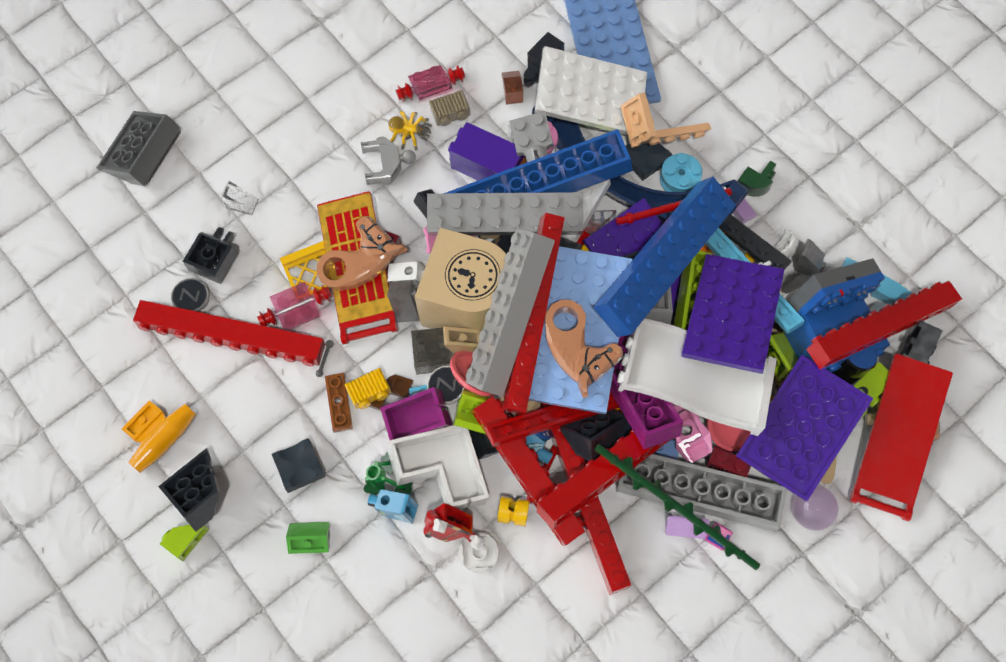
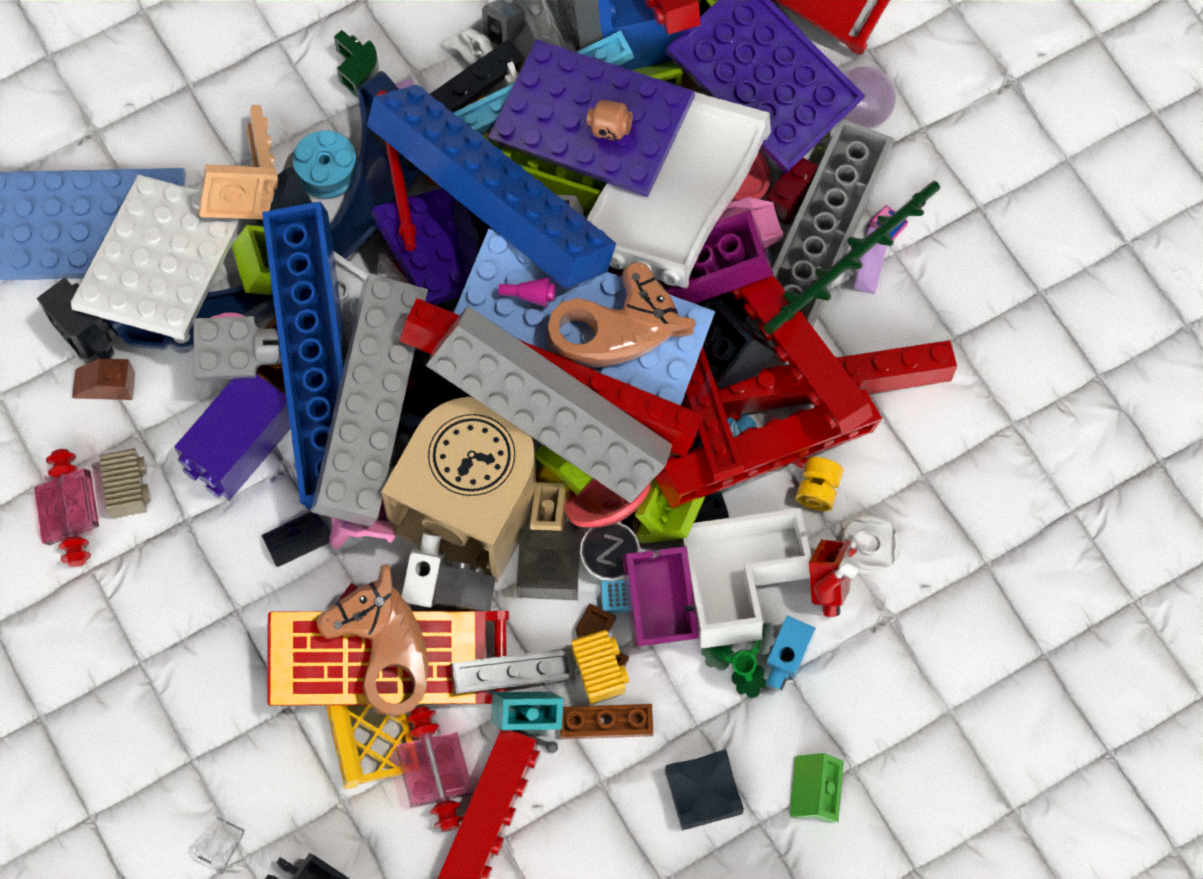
camera: 85 degrees left, 0 degrees up
(333, 350) = (527, 710): none -> teal brick
(359, 337) = (512, 671): none -> tile
(390, 160) = (195, 589): light grey connector -> none
(406, 129) = (143, 556): animal -> none
(589, 293) = (535, 291): none -> dark pink cone
(726, 319) = (610, 120): none -> nougat head

